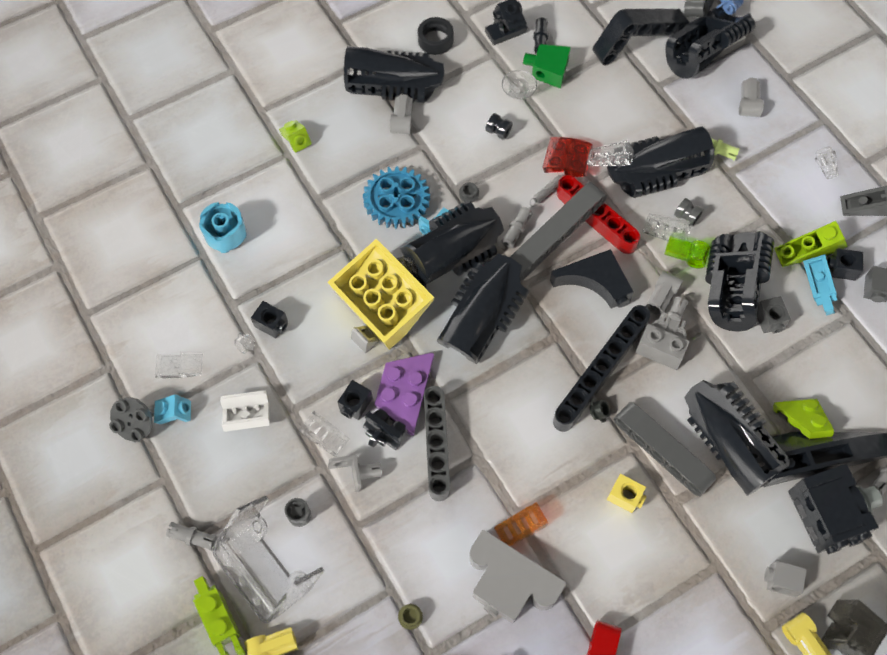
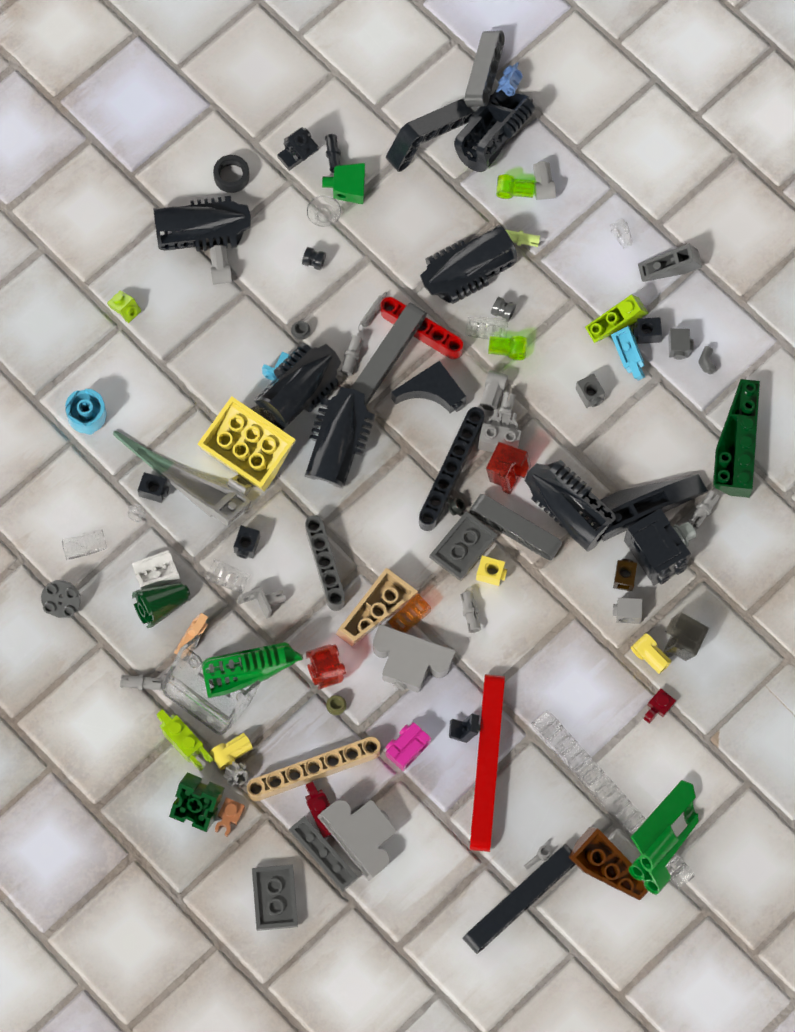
camera: 15 degrees left, 5 degrees up
(171, 409) = (91, 583): medium azure bracket -> none
(239, 446) = (159, 602): none -> dark green cone
(269, 487) = (196, 628): none -> light nougat plate
(294, 508) = (223, 640): dark grey wheel -> none
(319, 547) = (256, 665): none -> green connector
(327, 341) = (210, 496): none -> light grey plate
(381, 432) = (275, 563): black hips -> none
(396, 197) = (239, 364): dark azure gear -> none
(404, 388) = (286, 524): medium lavender wing -> none
(407, 567) = (325, 666): none -> clear red brick
(487, 504) = (379, 603): none -> tan wedge
(567, 156) = (384, 276): clear red slope -> none
(593, 537) = (470, 611): none -> light grey pin
(599, 457) = (463, 546): none -> dark grey plate
(611, 155) = (434, 265): clear slope -> none
(666, 375) = (506, 466): none -> clear red plate
(714, 97) = (509, 187): none -> clear neon green piece
(735, 272) = (552, 361): black connector -> none
(779, 540) = (622, 582): none -> dark brown brick
(806, 416) = (629, 474): lime wing -> none

